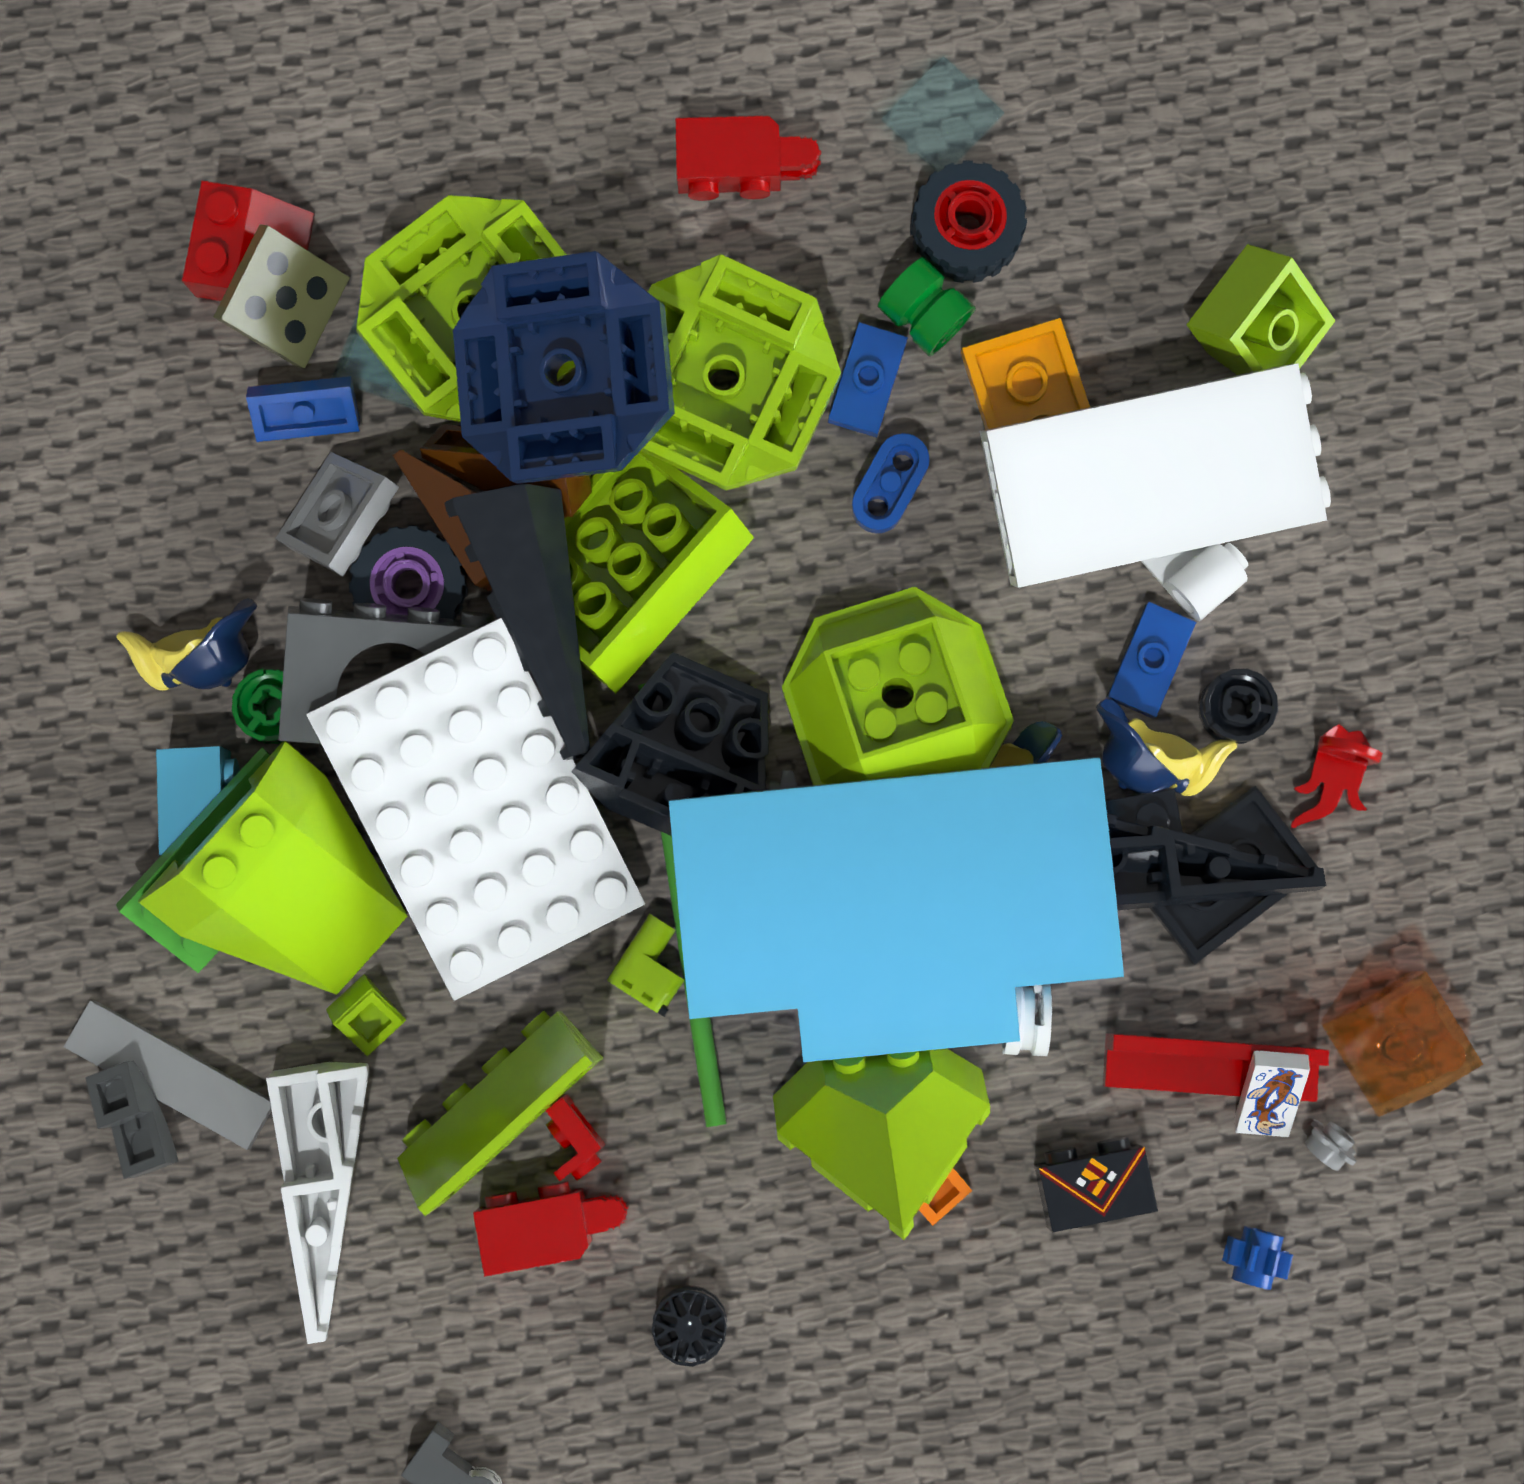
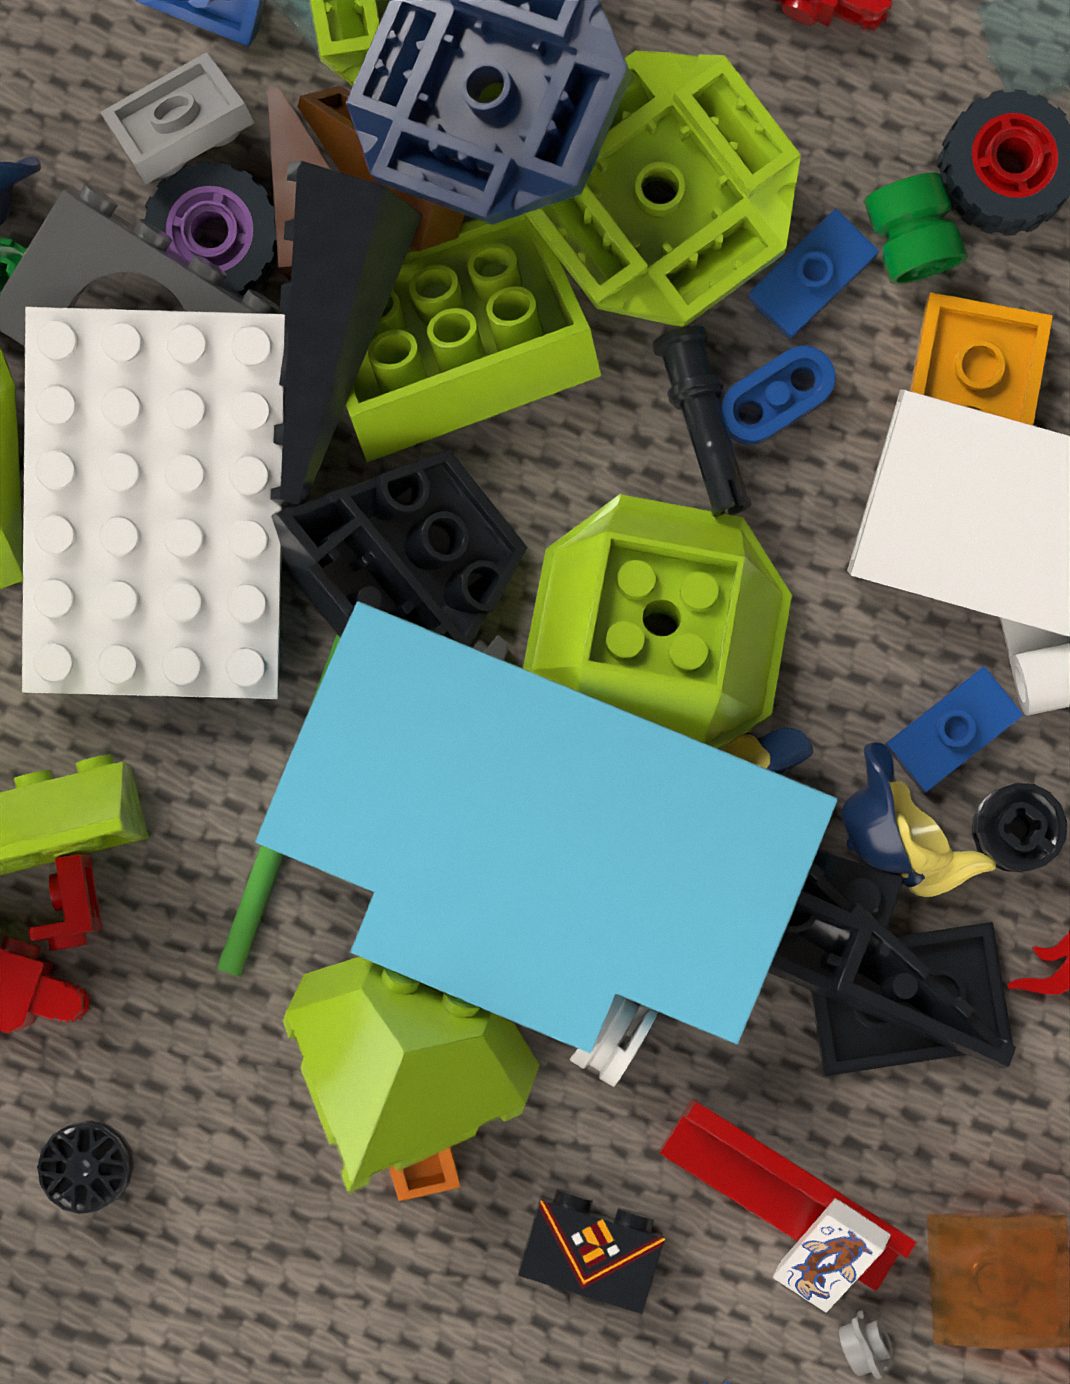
camera: 25 degrees right, 0 degrees up
(640, 972) = (235, 771): lime piece -> none
(830, 513) = (696, 393): none -> black pin

